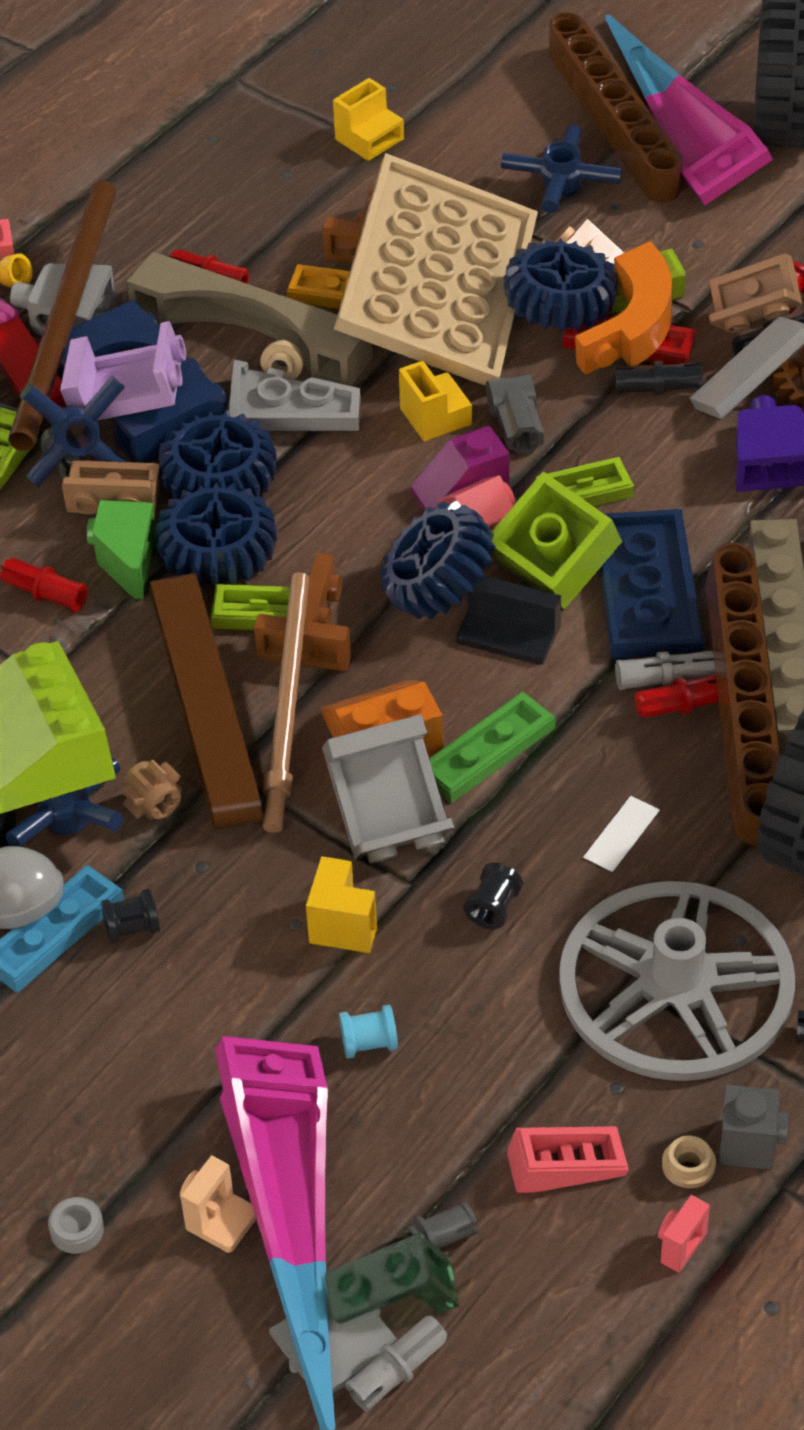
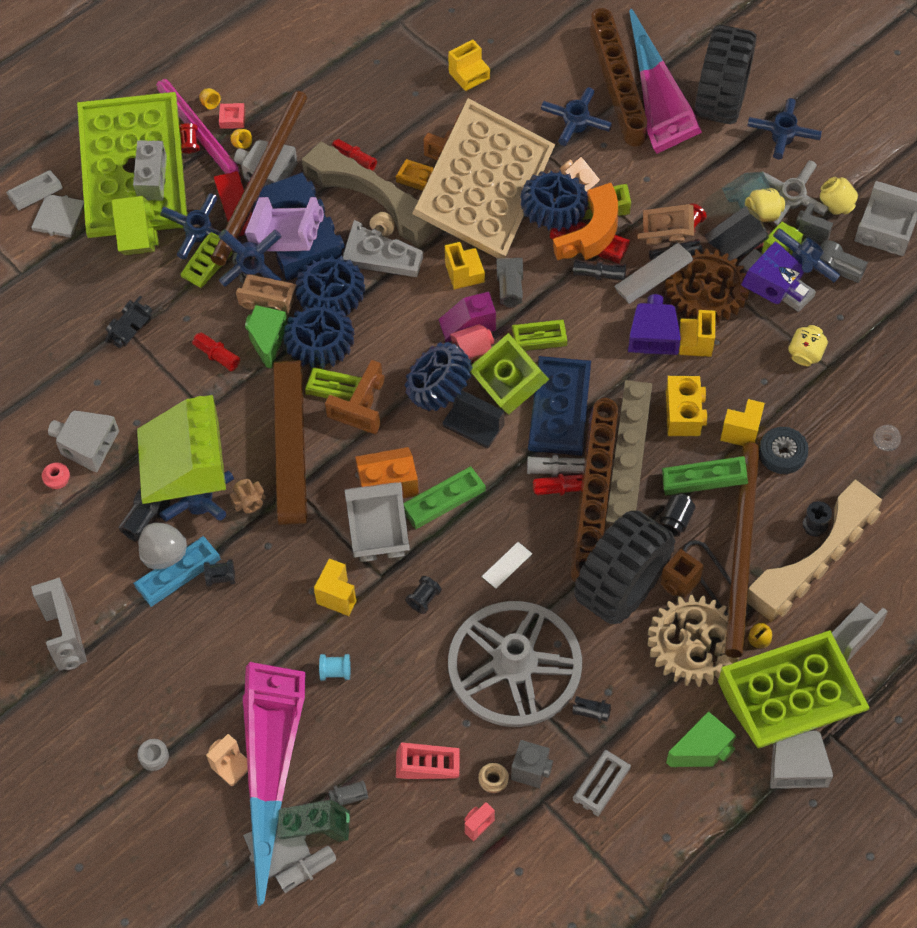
camera: 10 degrees right, 10 degrees up
(278, 780) = (320, 501): medium nougat bar -> none

